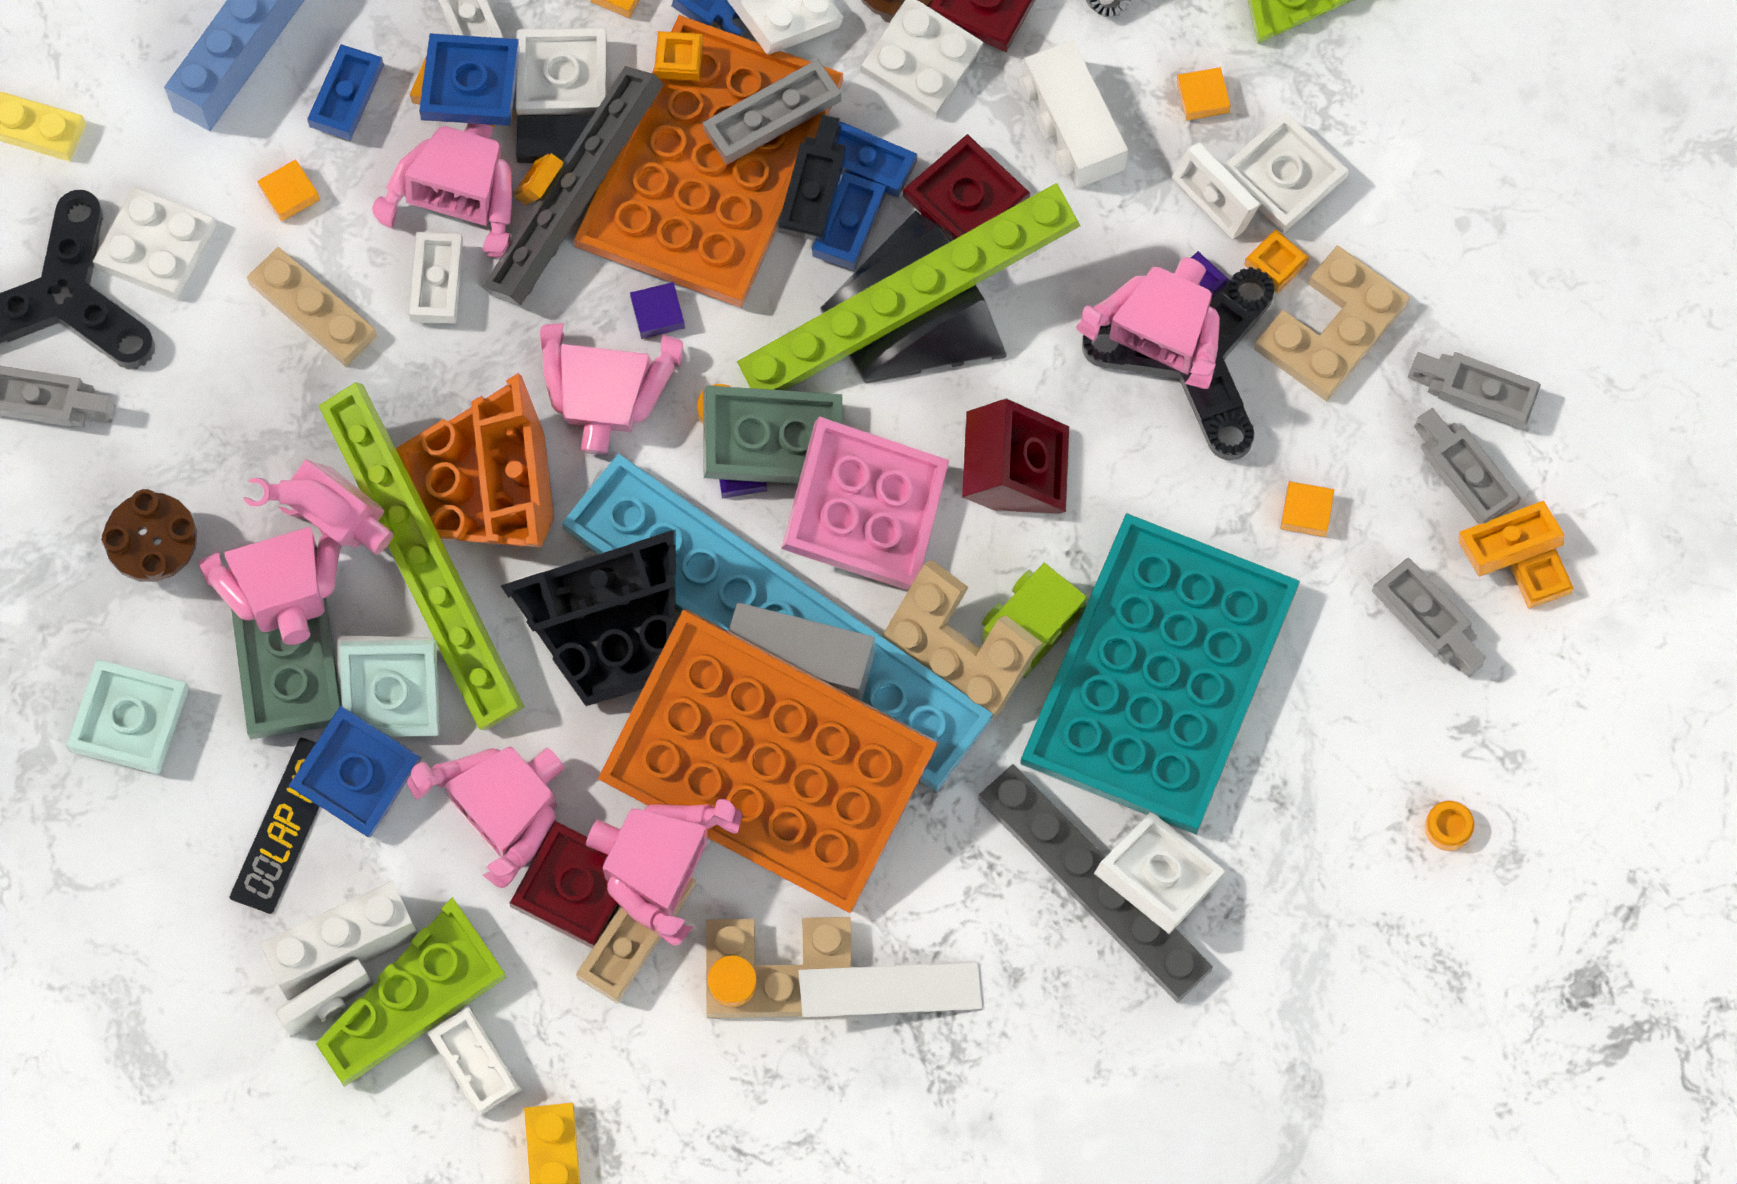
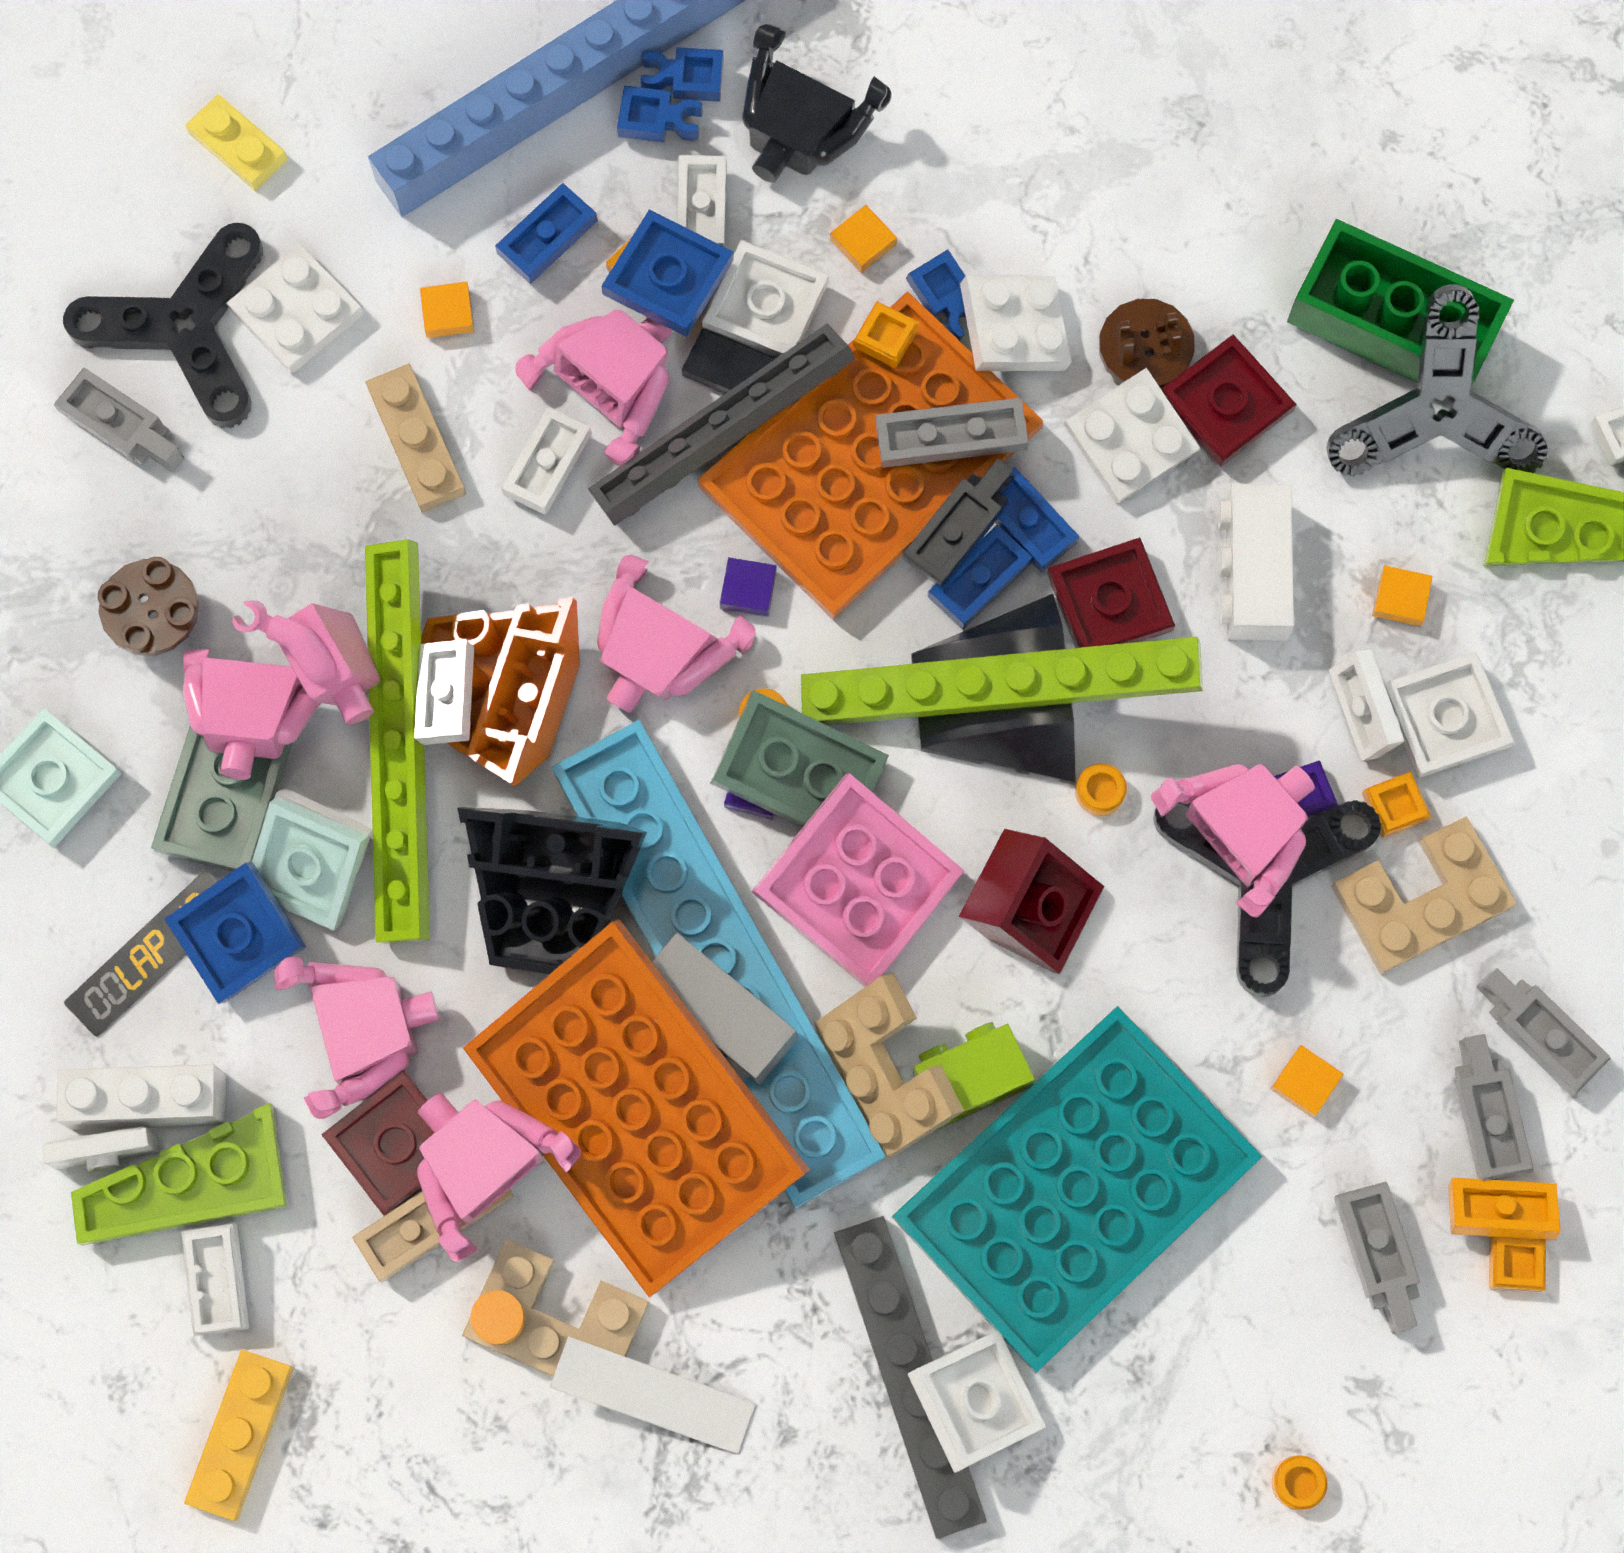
camera: 25 degrees right, 5 degrees up
(444, 496) = (444, 692): none -> white plate
(538, 179) = (691, 402): light orange tile -> none
(1029, 350) = (1101, 789): none -> light orange tile

